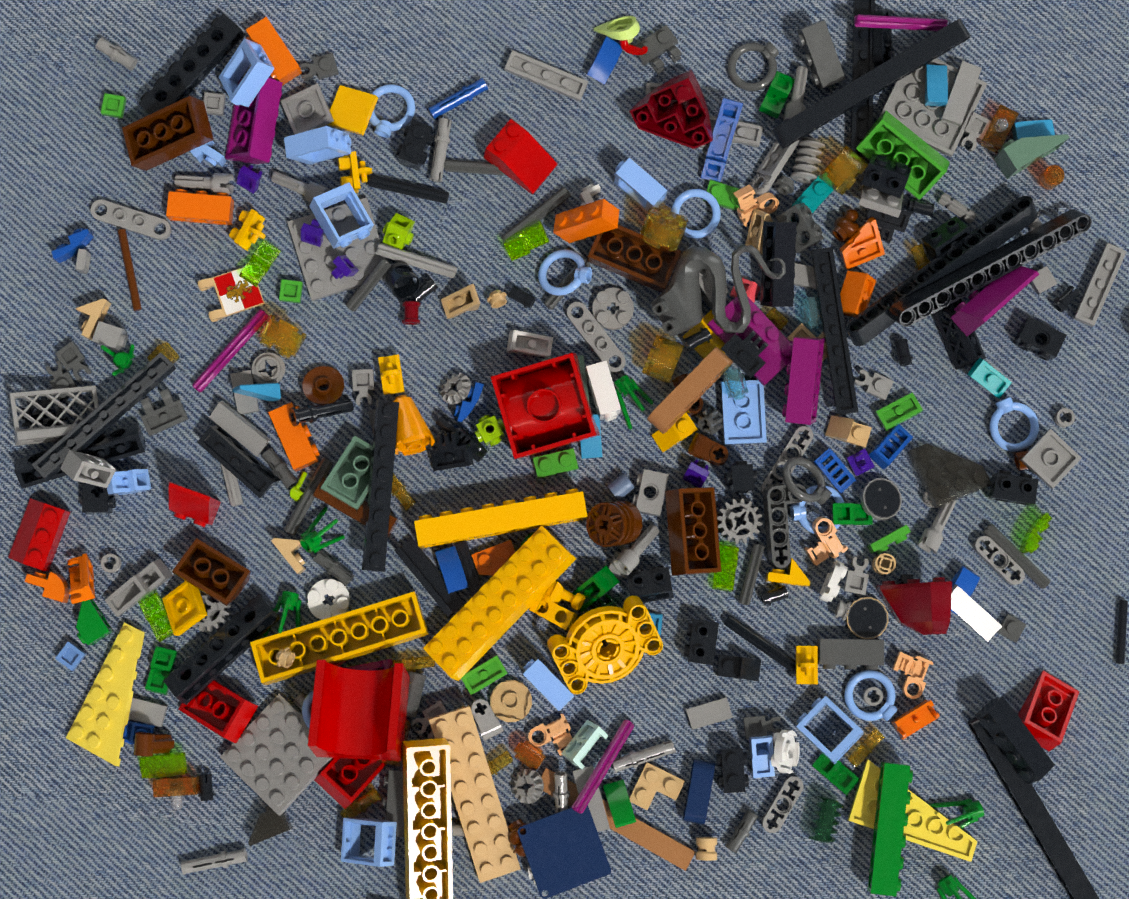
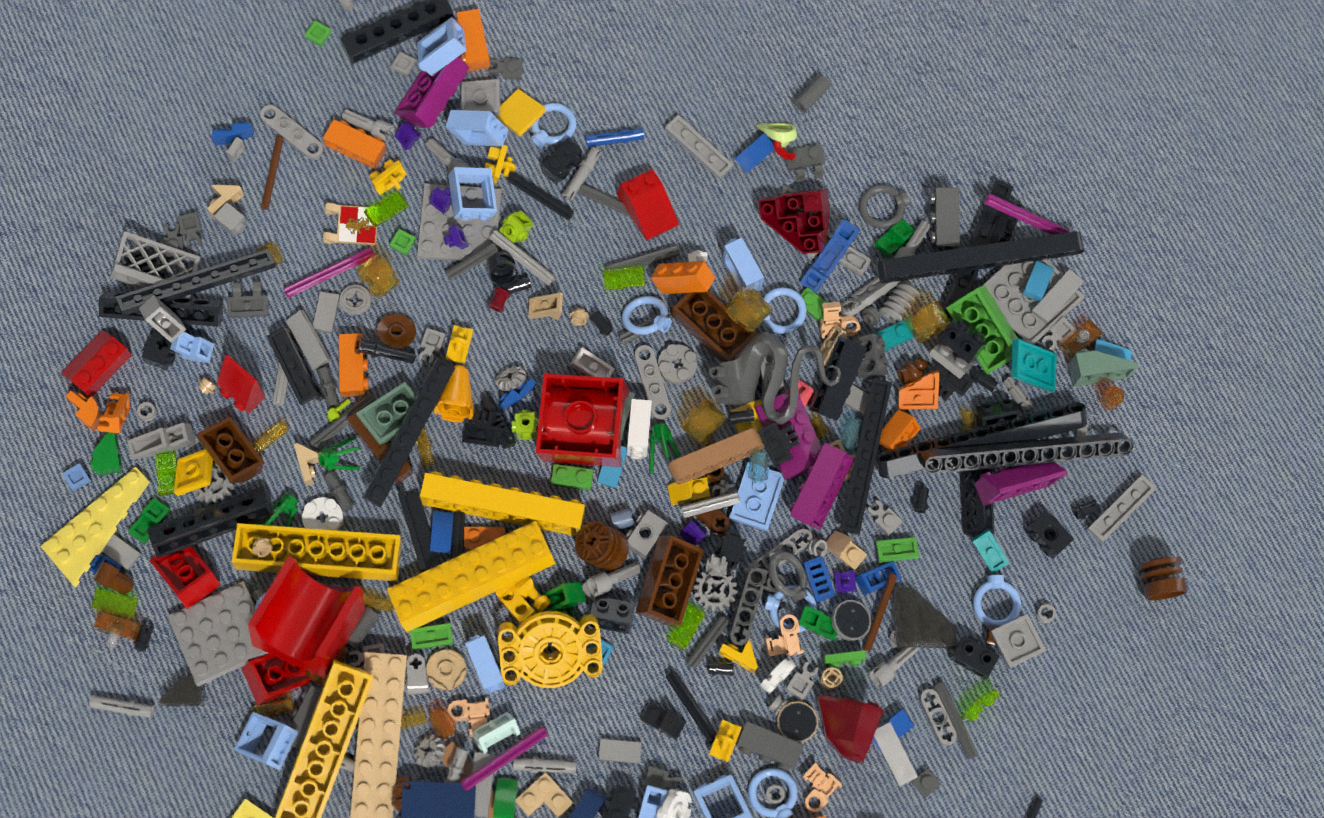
camera: 20 degrees right, 10 degrees down
(120, 359) = (232, 243): green plant -> none
(159, 513) = (206, 385): none -> tan plate
(167, 133) = (353, 70): reddish brown brick -> none
(212, 156) = (377, 96): light blue brick -> none
(243, 541) = (270, 437): none -> clear yellow axle
(267, 392) = (341, 315): dark azure slope -> none
(703, 440) = (710, 504): none -> light grey axle
(705, 642) = (640, 683): black brick -> none
(733, 500) = (716, 566): none -> light grey plate
(821, 440) = (813, 545): none -> light grey bush
(905, 459) = (880, 612): none -> reddish brown bar
(964, 174) = (1033, 365): none -> teal tile
(1043, 281) = (1071, 485): light grey tile -> none

